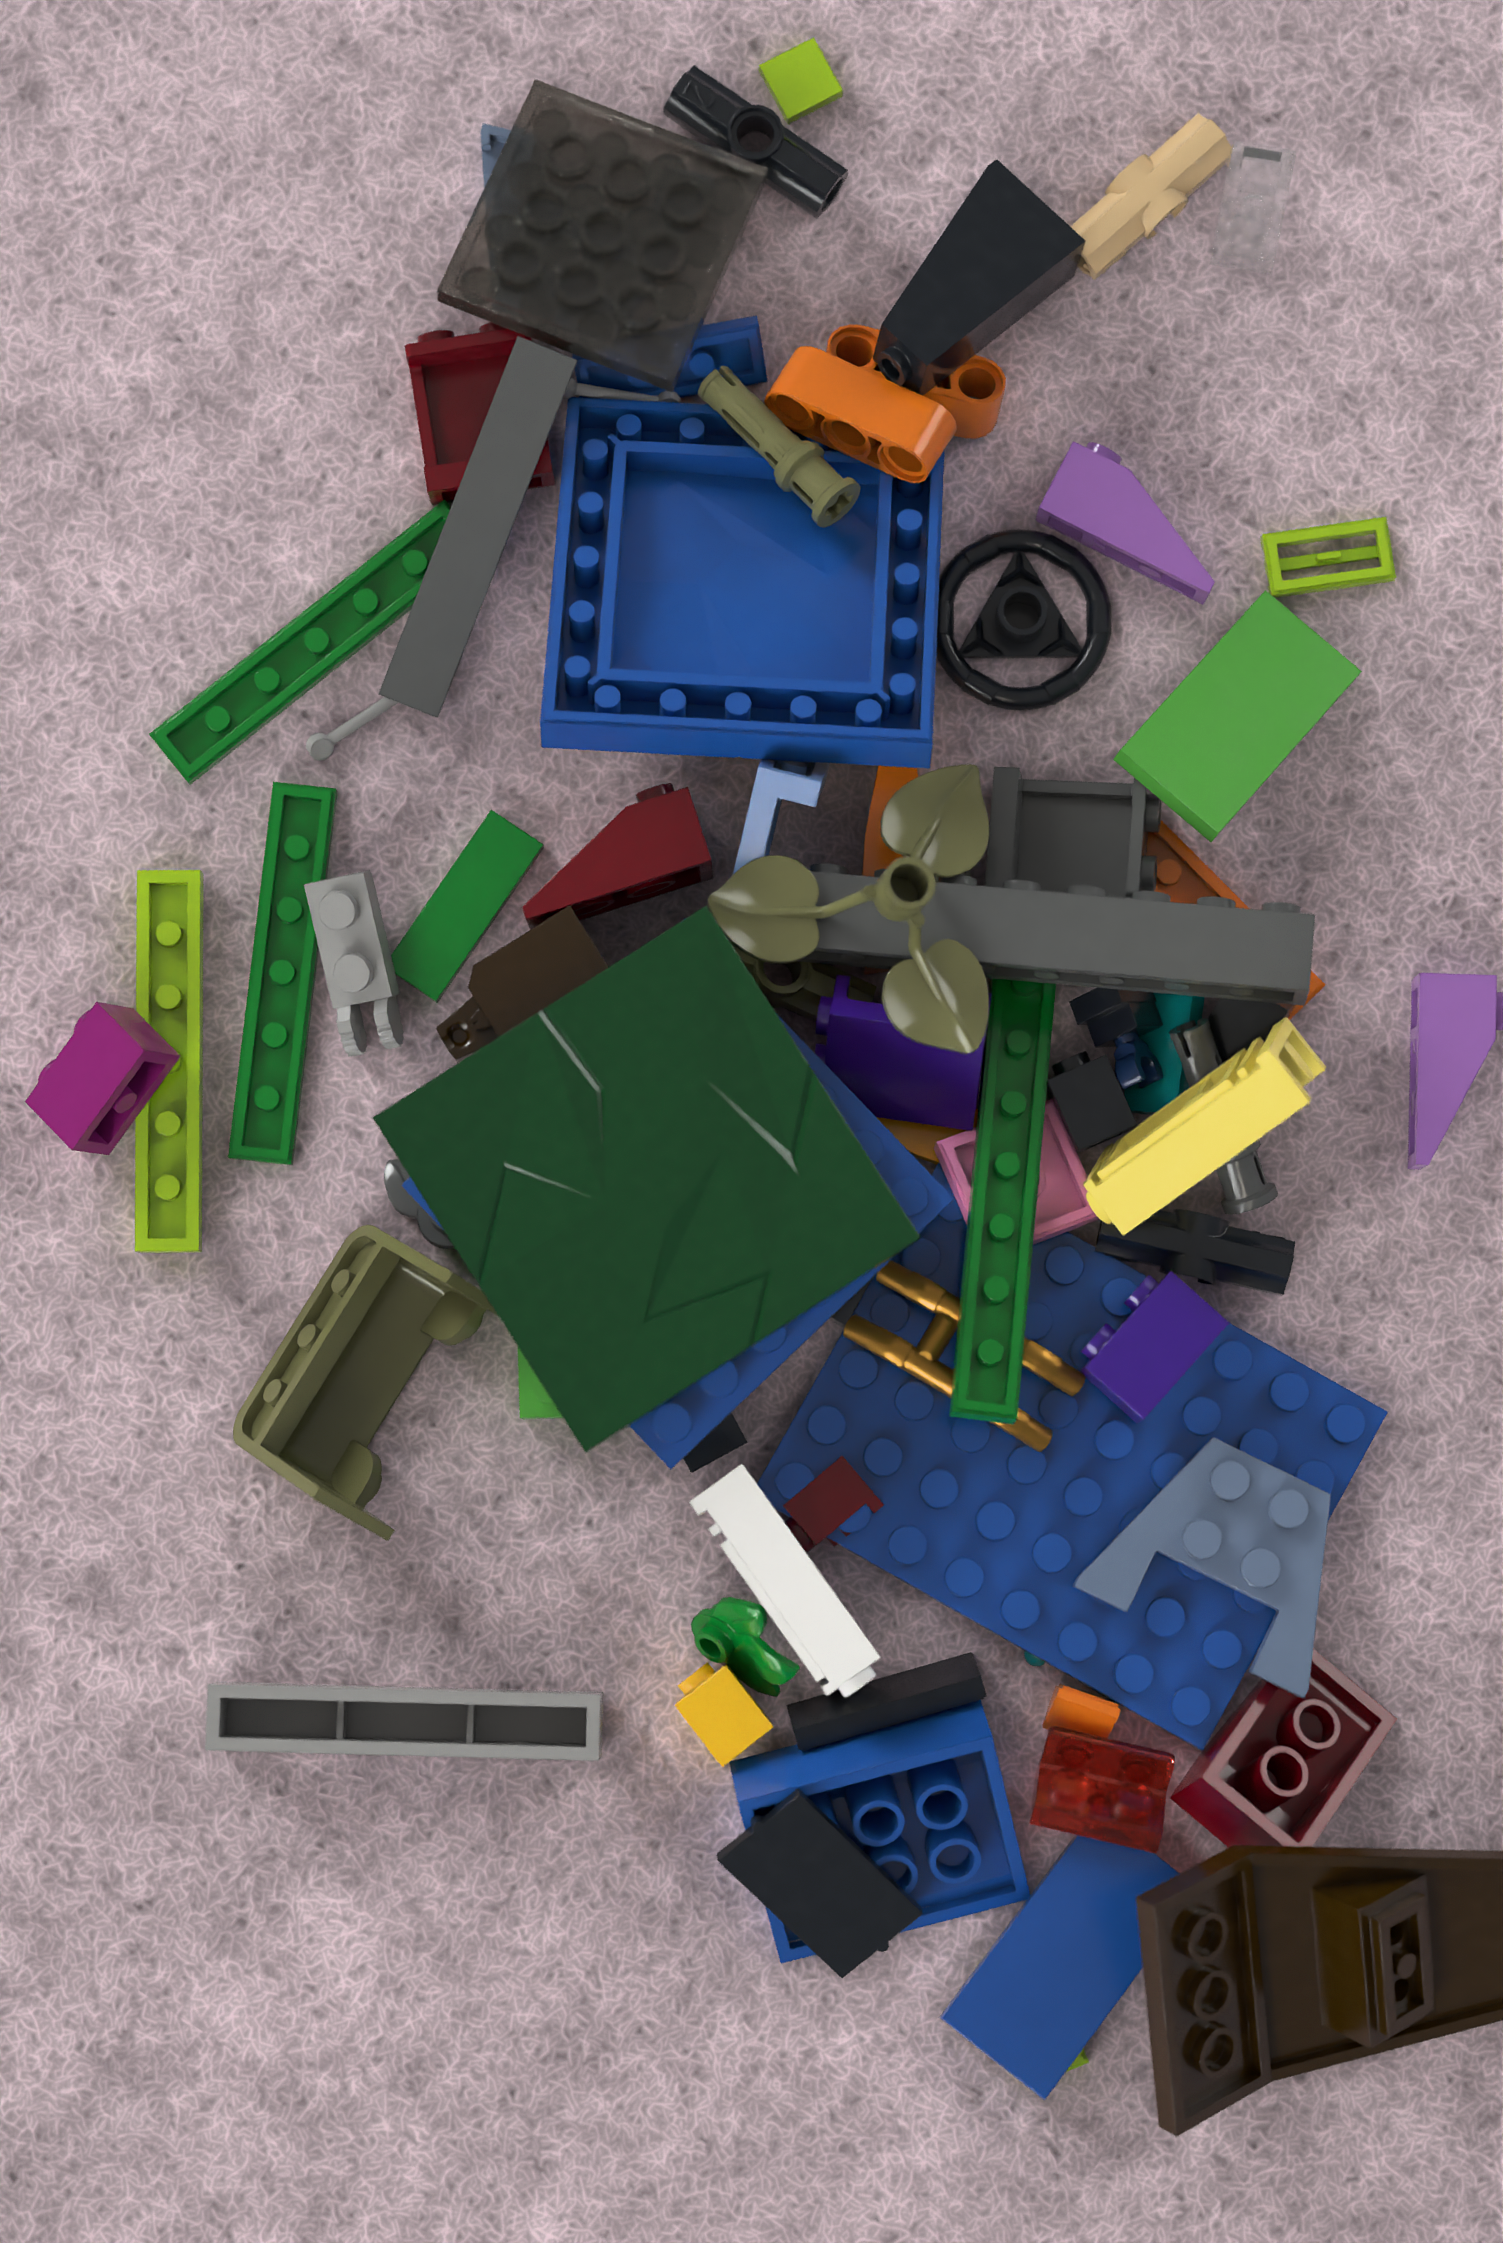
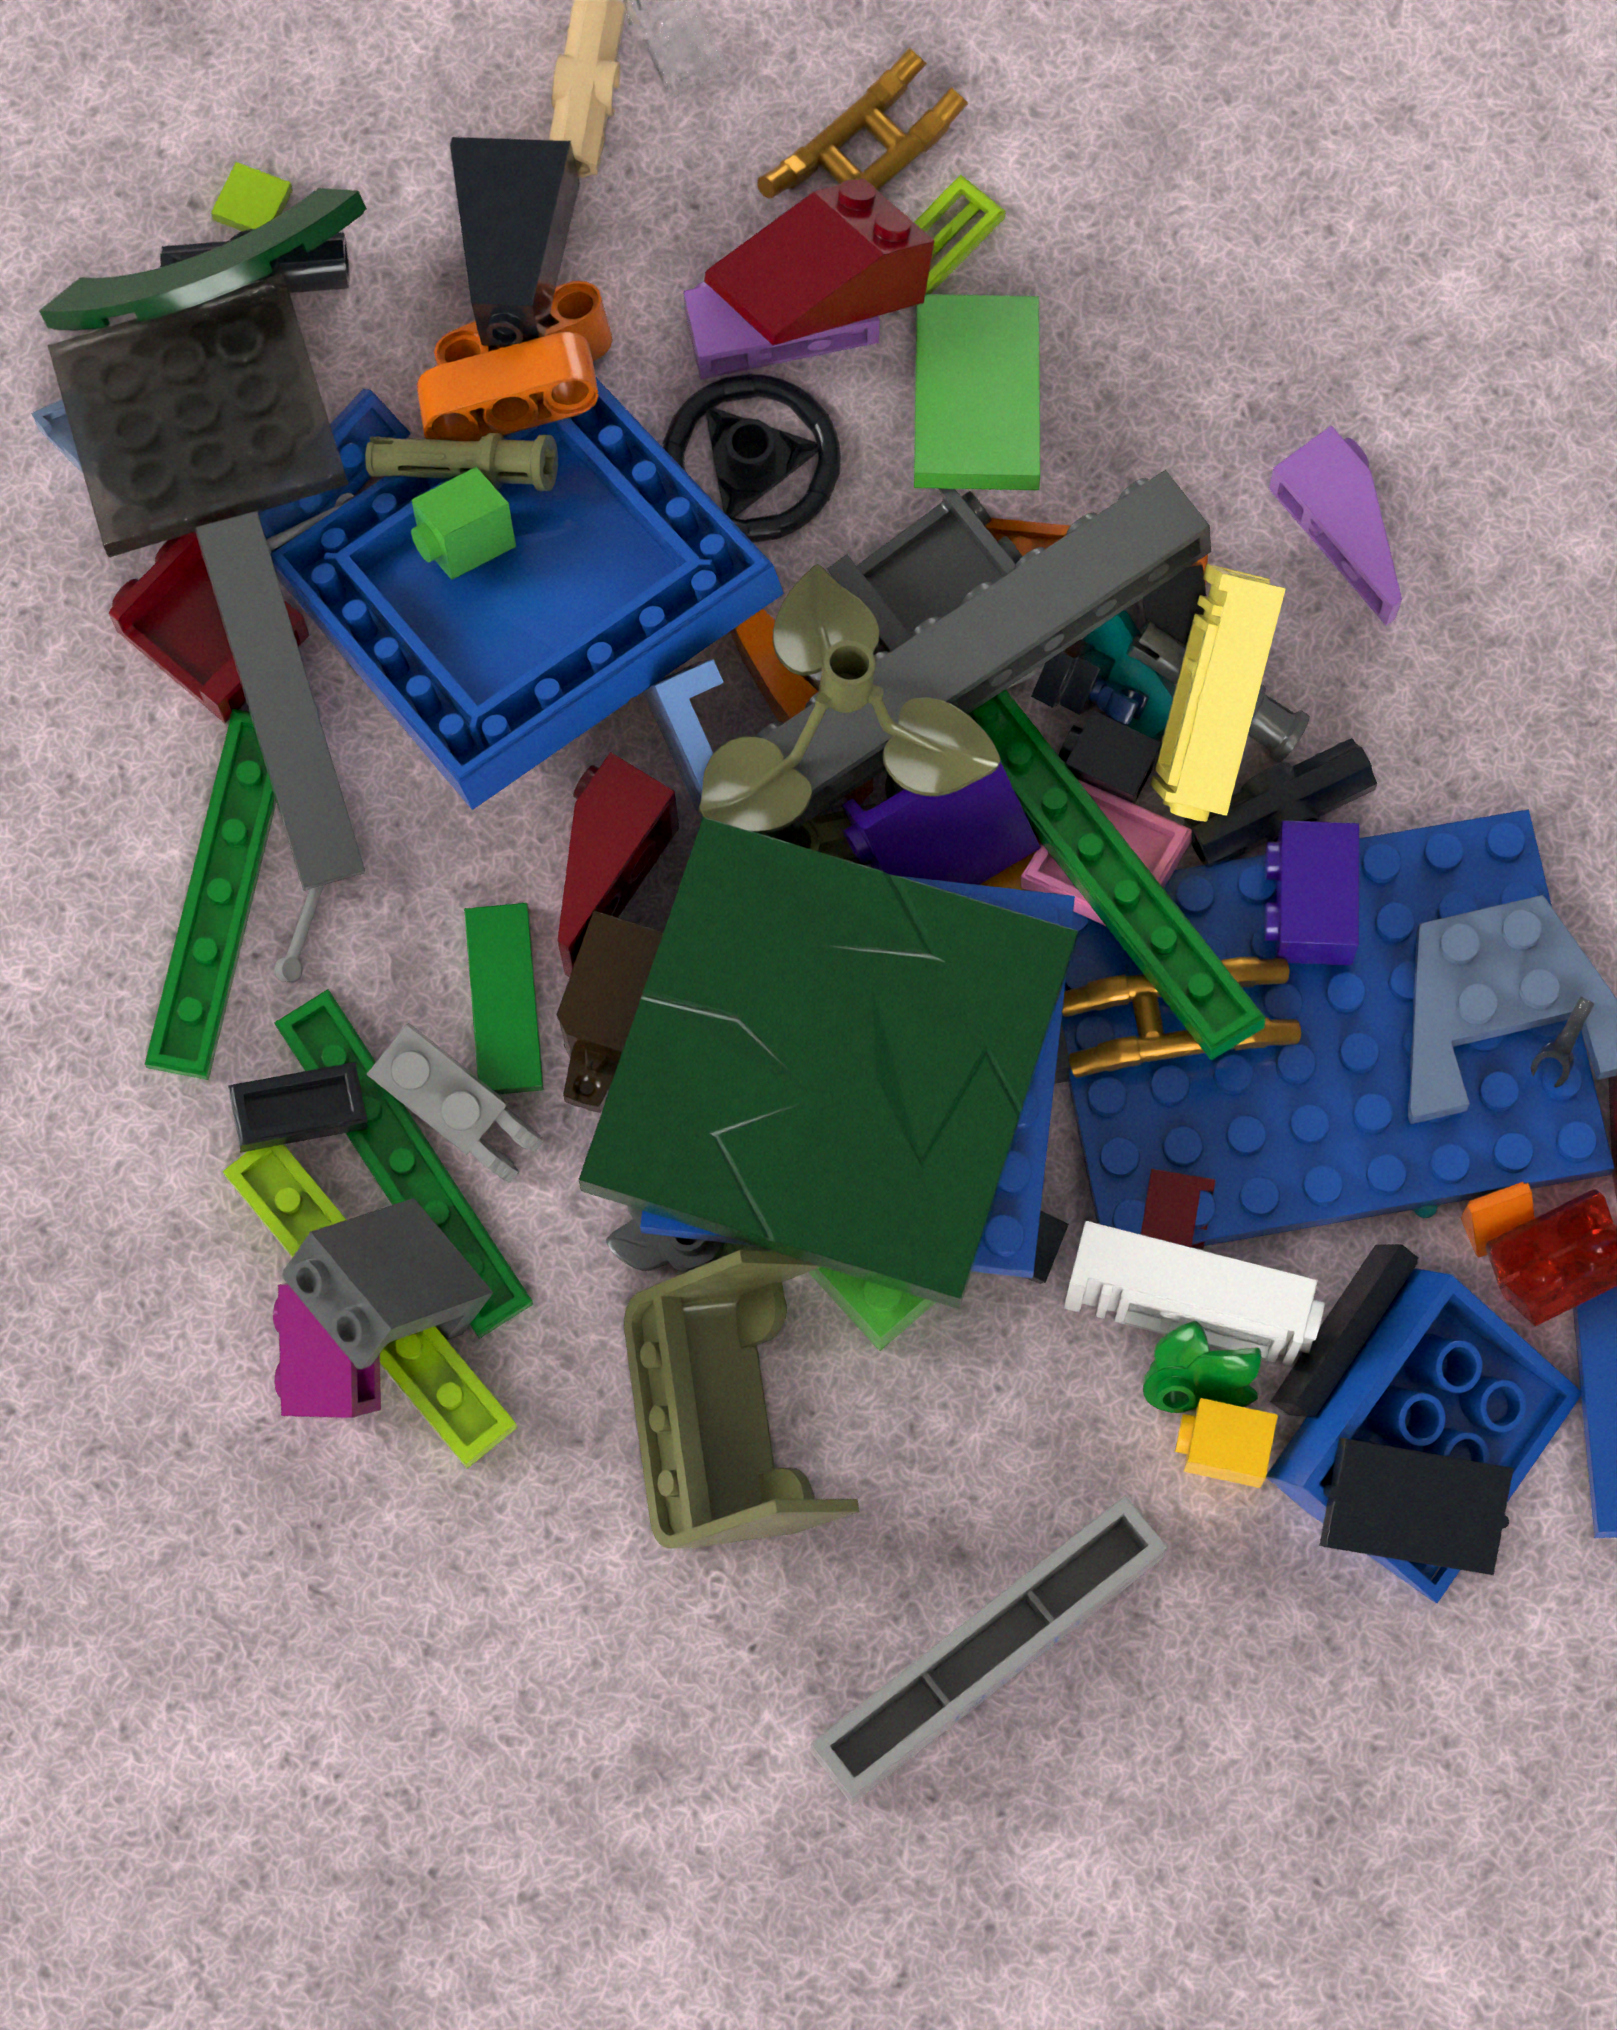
camera: 40 degrees left, 10 degrees down
(181, 1064) = (385, 1280): none -> dark grey panel
(232, 867) = (298, 1107): none -> black tile
(680, 118) = (208, 275): none -> dark green tile
(729, 500) = (462, 523): none -> bright green brick
(1199, 513) = (826, 264): none -> dark red slope
(1235, 1627) = (1565, 1041): none -> clear smoke hand
(1354, 402) = (870, 114): none -> pearl gold piece

